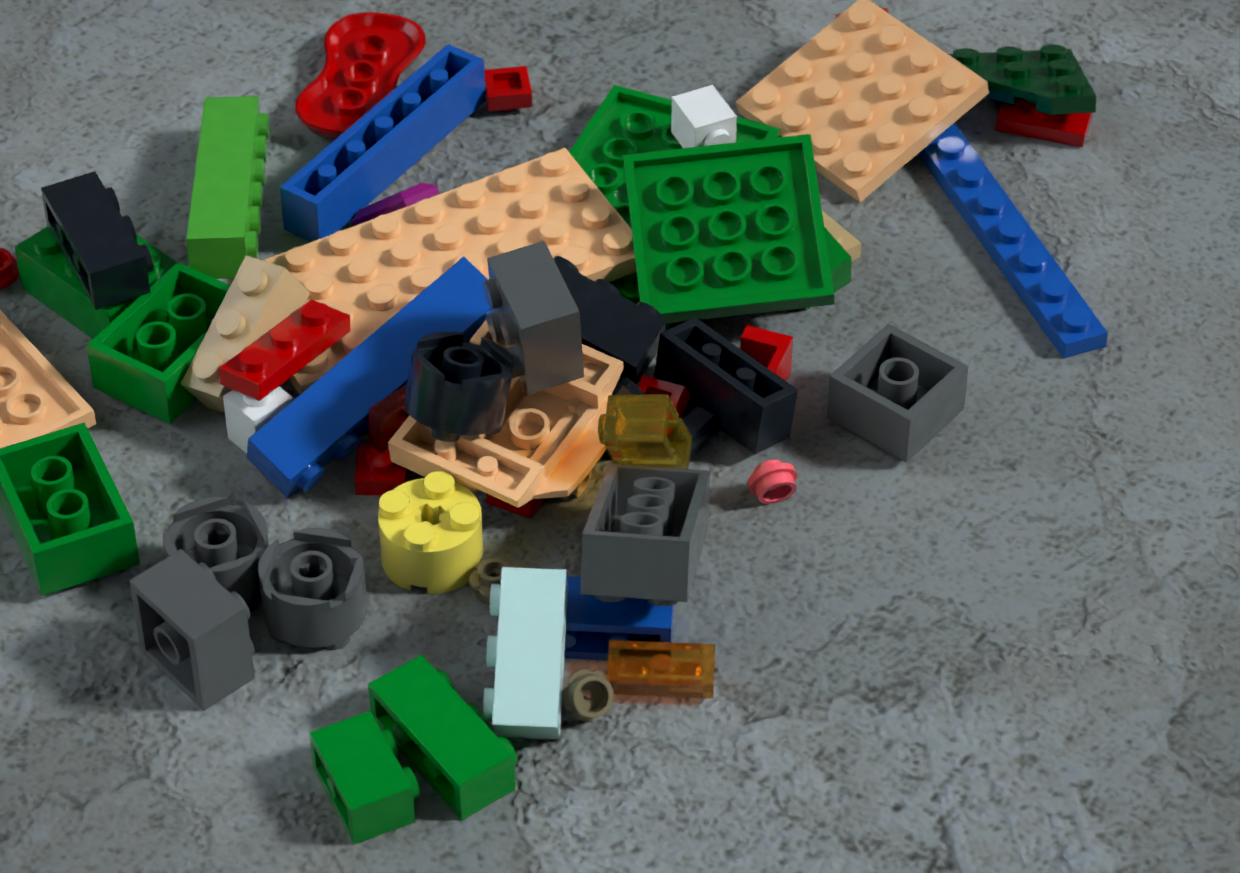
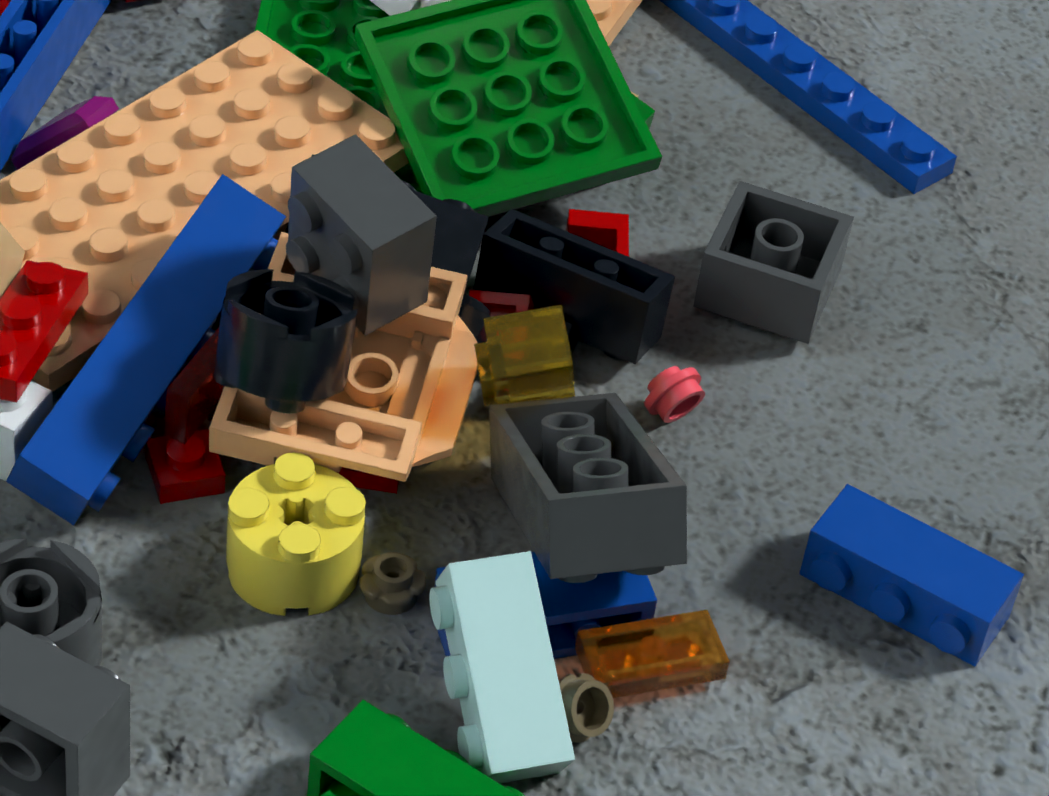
camera: 25 degrees left, 0 degrees up
(313, 589) = (177, 638): dark grey brick -> none
(891, 650) = (910, 574): none -> blue brick

